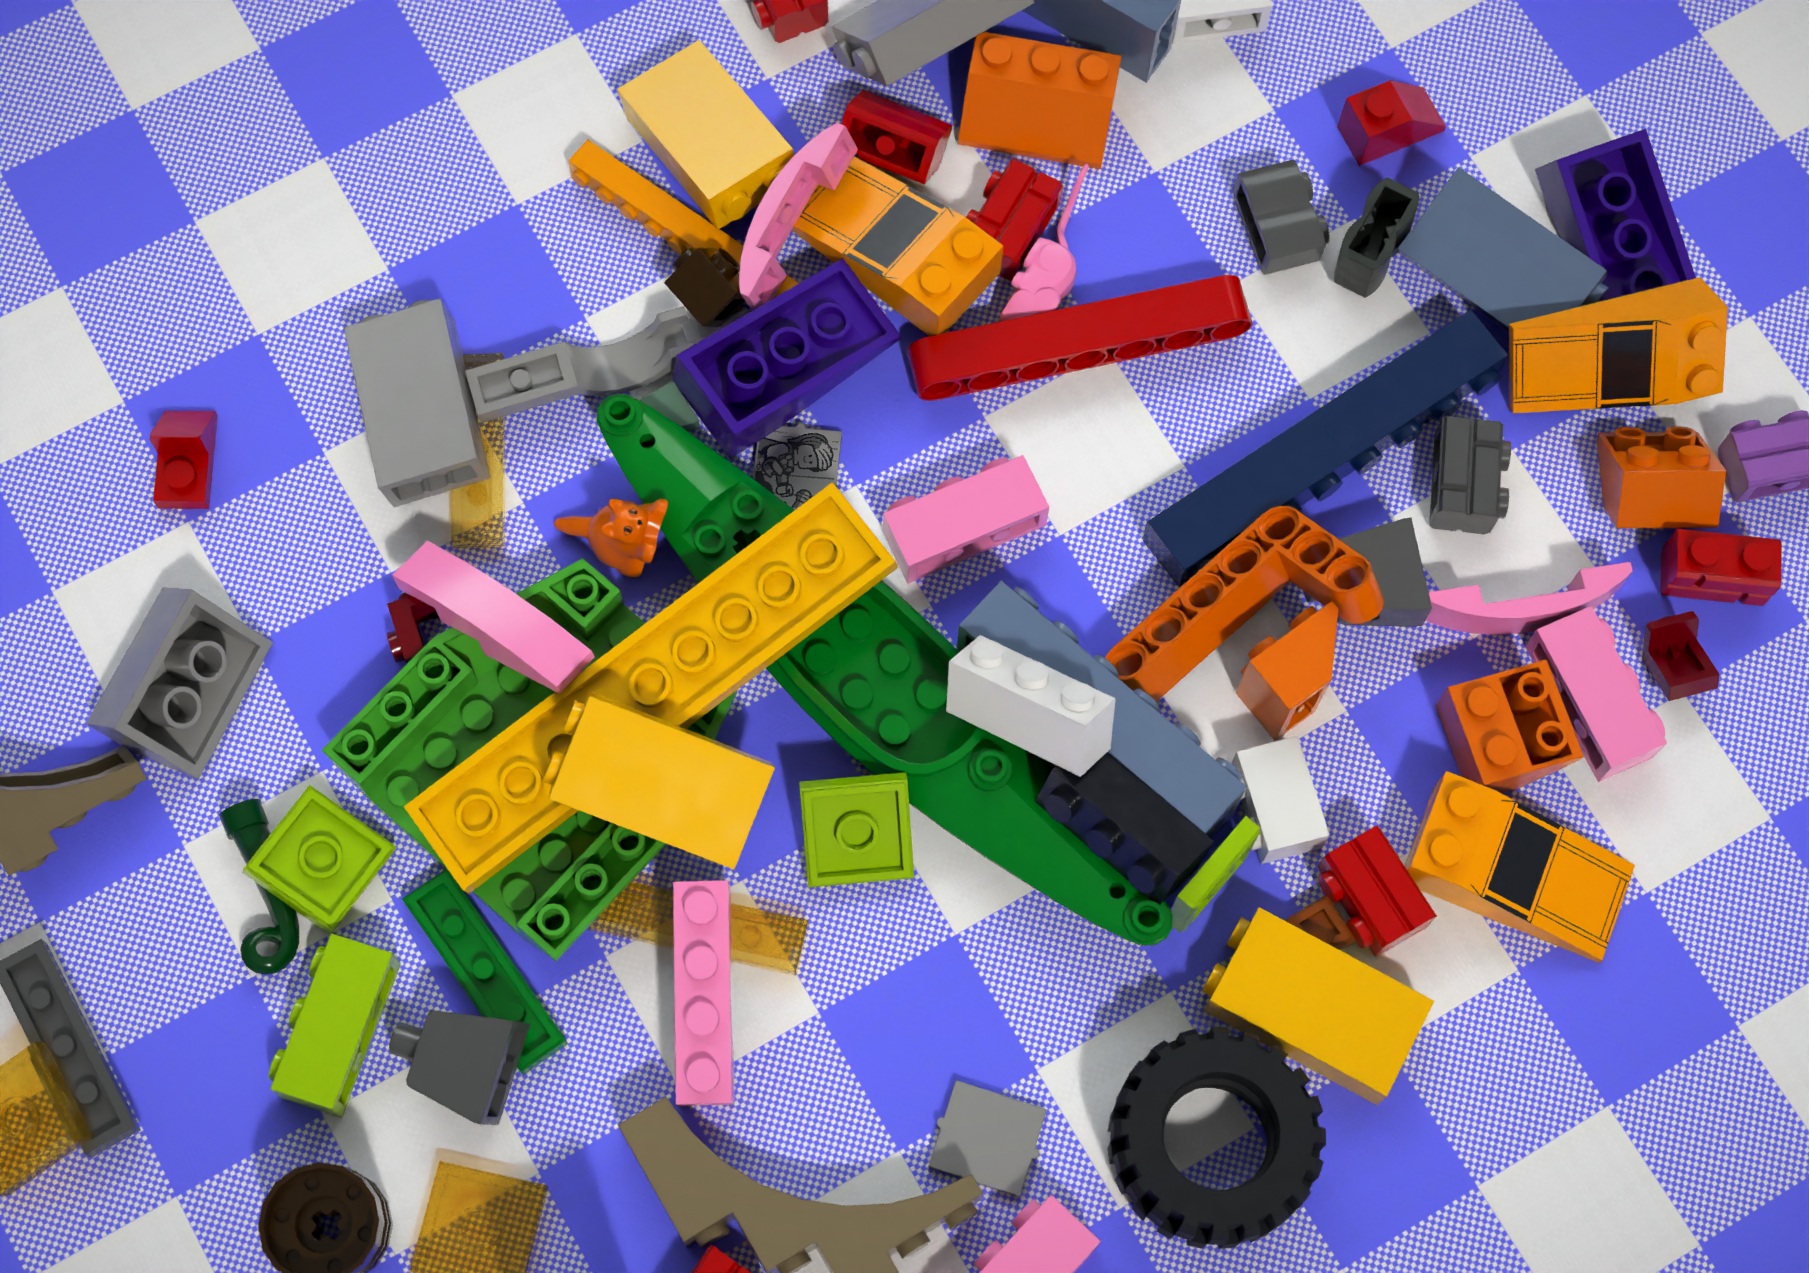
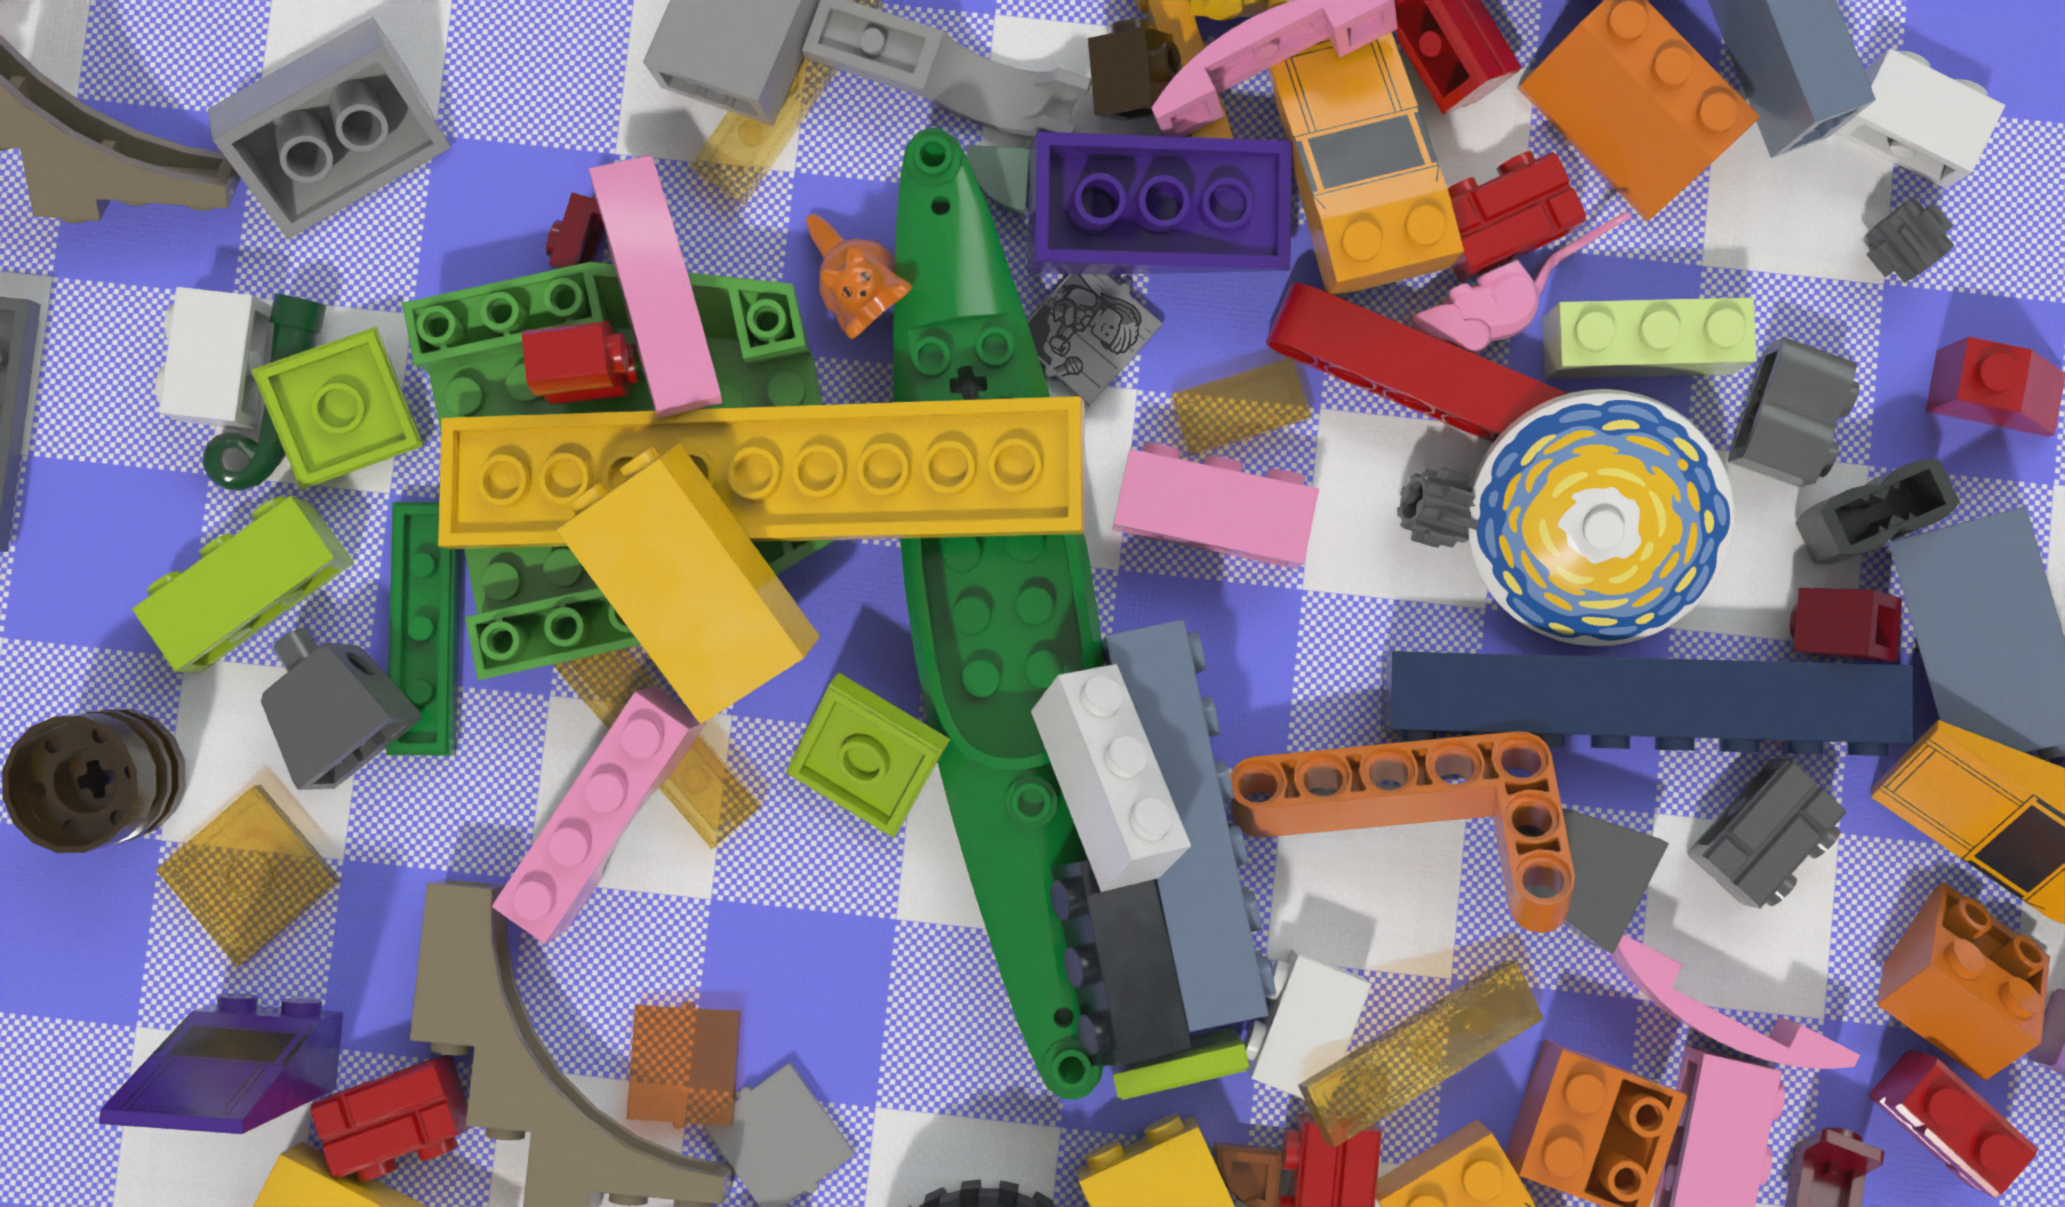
camera: 45 degrees right, 15 degrees up
(206, 888) = (210, 358): none -> white brick
(479, 697) = (579, 363): none -> red brick
(884, 1133) = (684, 1065): none -> clear orange piece
(932, 447) = (1240, 406): none -> clear yellow tile
(1108, 418) = (1437, 507): none -> dark grey gear
(1156, 231) = (1649, 338): none -> yellowish green brick
(1211, 354) = (1601, 517): none -> dish
(1267, 70) = (1909, 240): none -> dark grey gear
(1291, 674) = (1419, 921): orange slope -> none
(1362, 760) = (1420, 1052): none -> clear yellow tile
(1411, 314) = (1846, 624): none -> dark red brick

